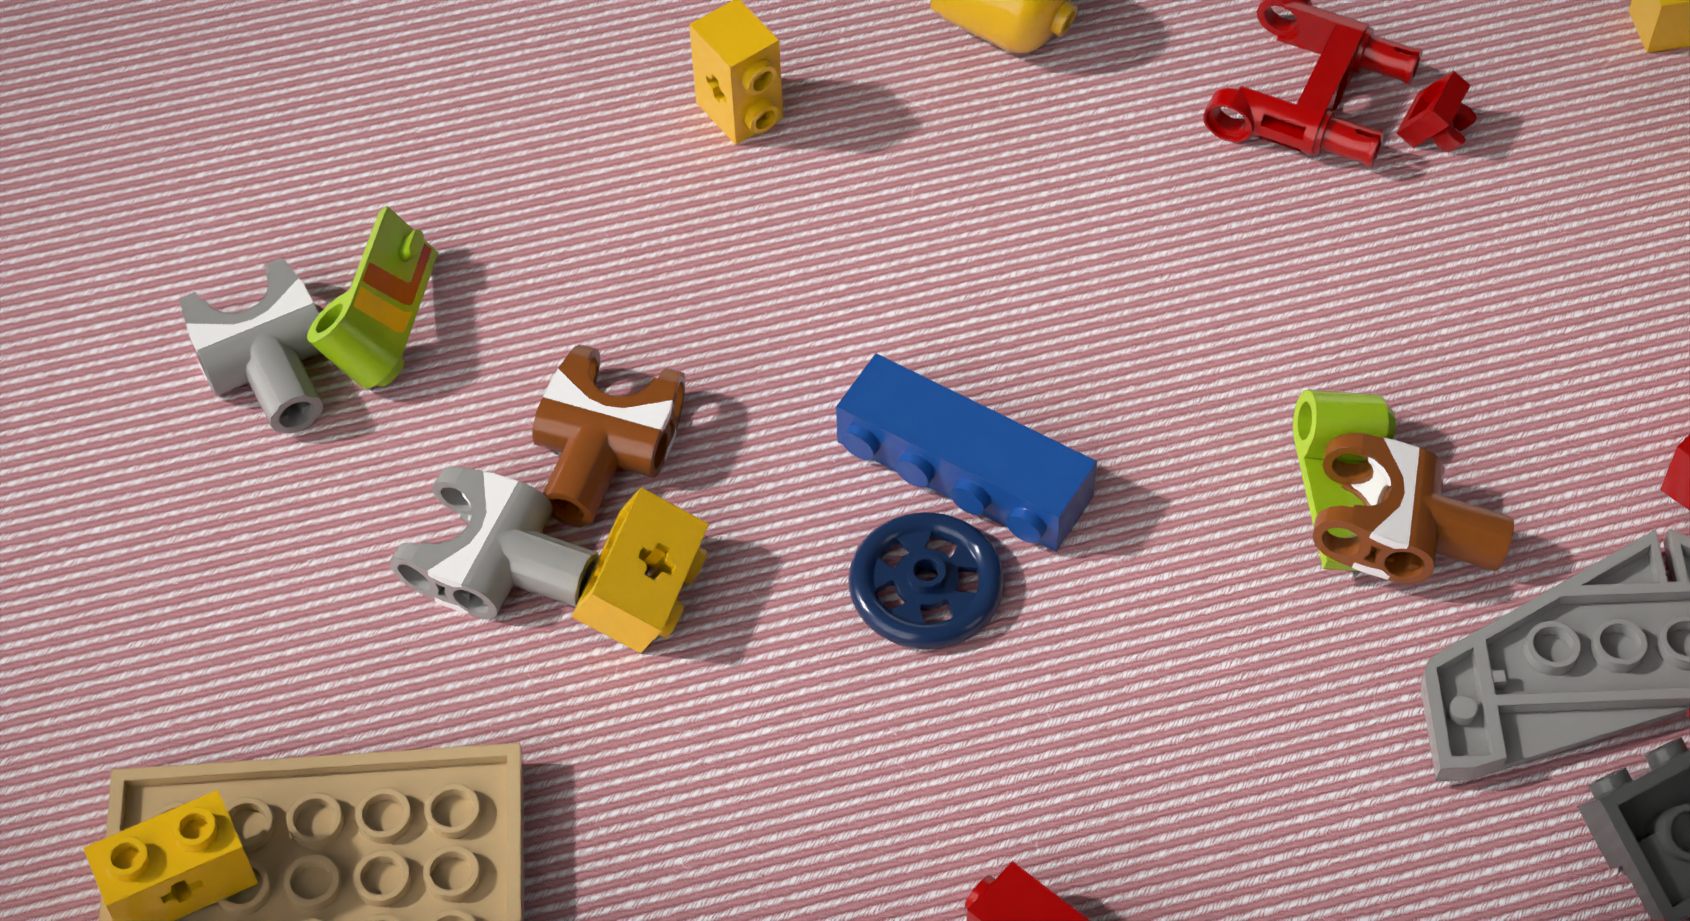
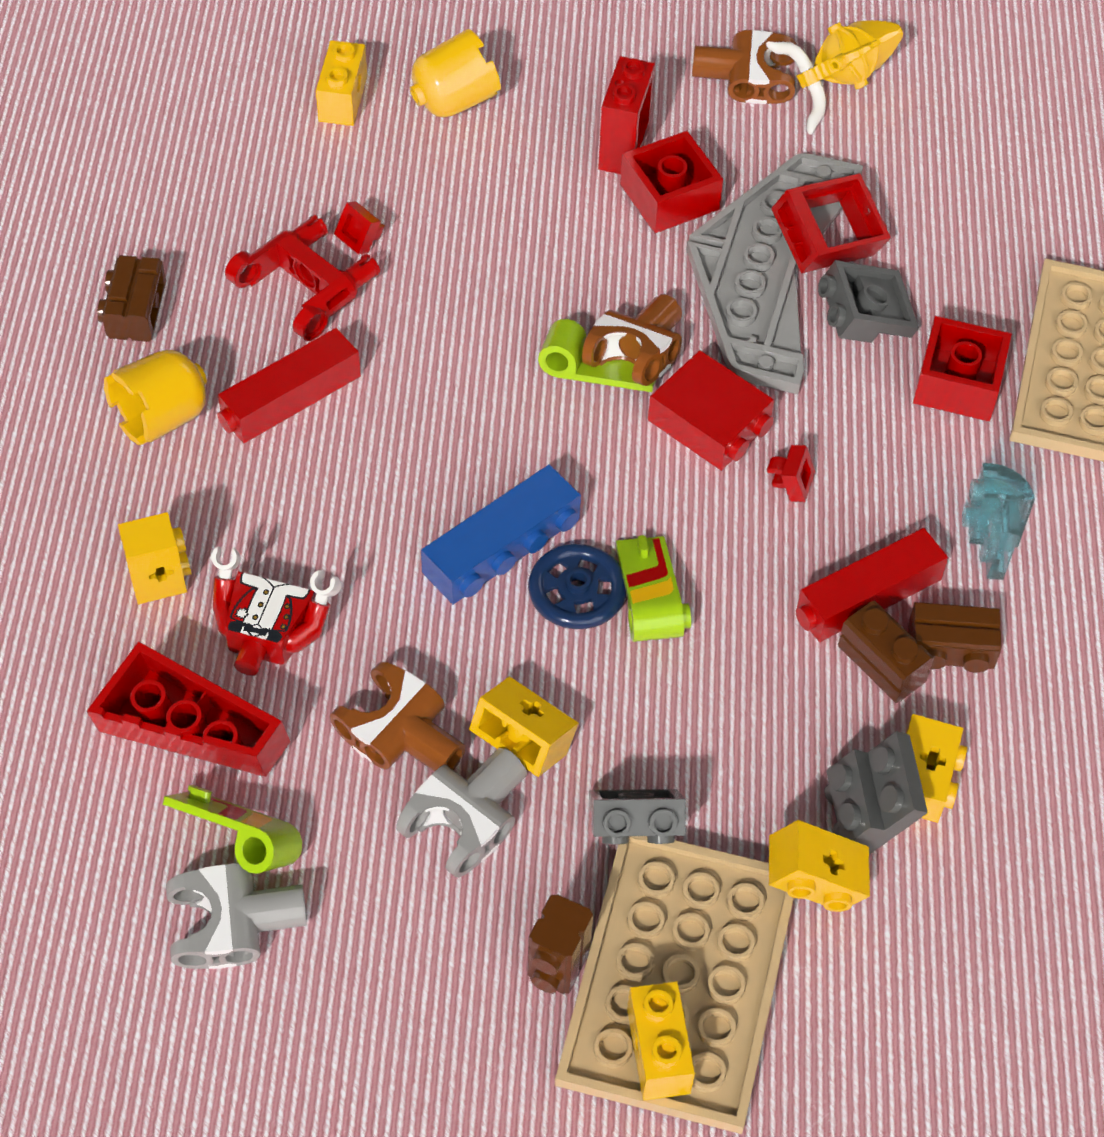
camera: 75 degrees left, 0 degrees up
(292, 701) = (559, 944): none -> reddish brown brick
(526, 194) = (186, 714): none -> red wedge
(536, 743) = (637, 813): none -> plate
(711, 221) = (267, 616): none -> torso
(920, 672) = (651, 590): none -> lime door
(1107, 128) = (288, 385): none -> red brick
(1259, 809) = (793, 473): none -> red tile
(1326, 658) = (711, 410): none -> red brick

